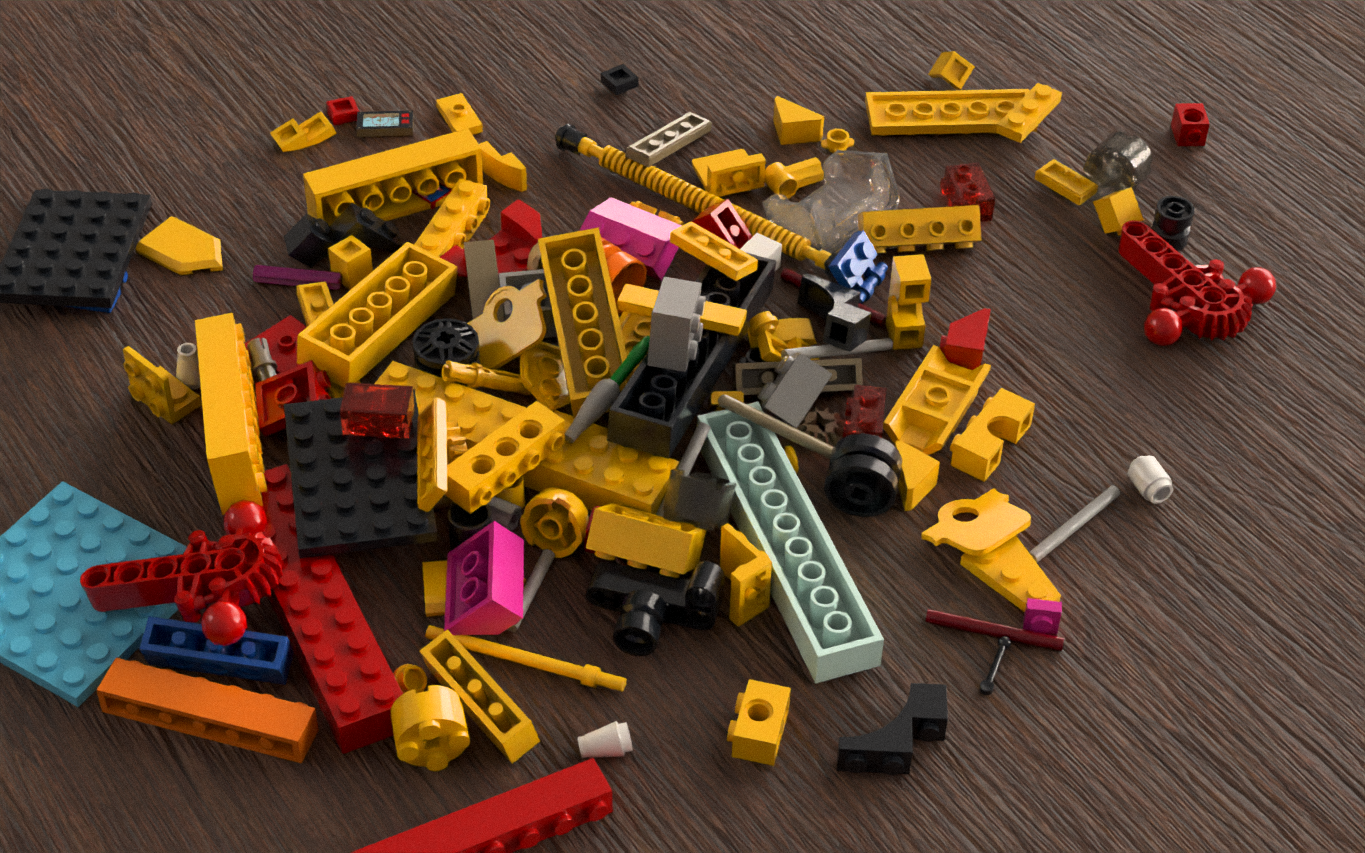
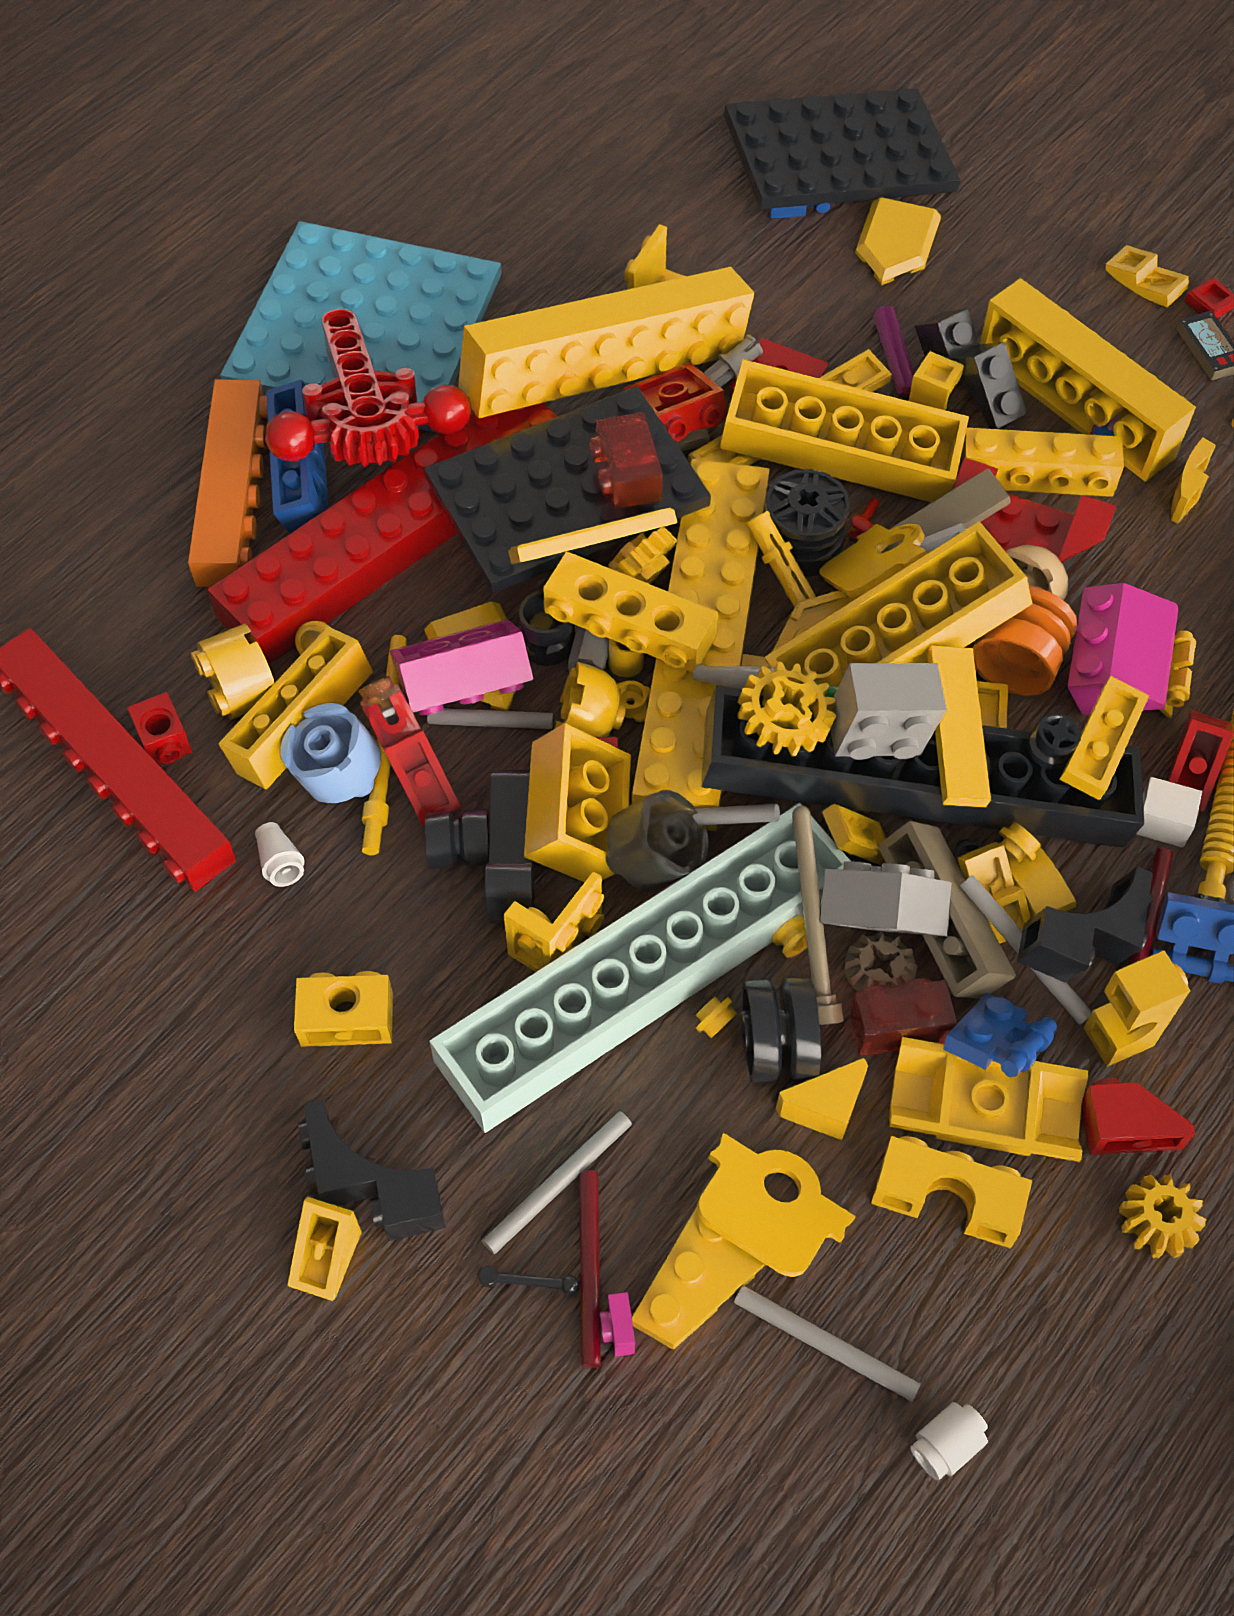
camera: 75 degrees right, 15 degrees up
(449, 787) = (157, 716): none -> red brick
(528, 661) = (331, 754): none -> light blue brick
(554, 632) = (407, 749): none -> red plate
(649, 374) = (786, 708): none -> yellow gear
(710, 271) = (1064, 736): none -> black wheel
(833, 516) = (715, 1016): none -> yellow plate
(901, 376) = (987, 1033): none -> blue plate
(928, 634) = (556, 1182): none -> light grey bar
(946, 767) = (323, 1248): none -> yellow slope
(1033, 346) = (1175, 1209): none -> yellow gear

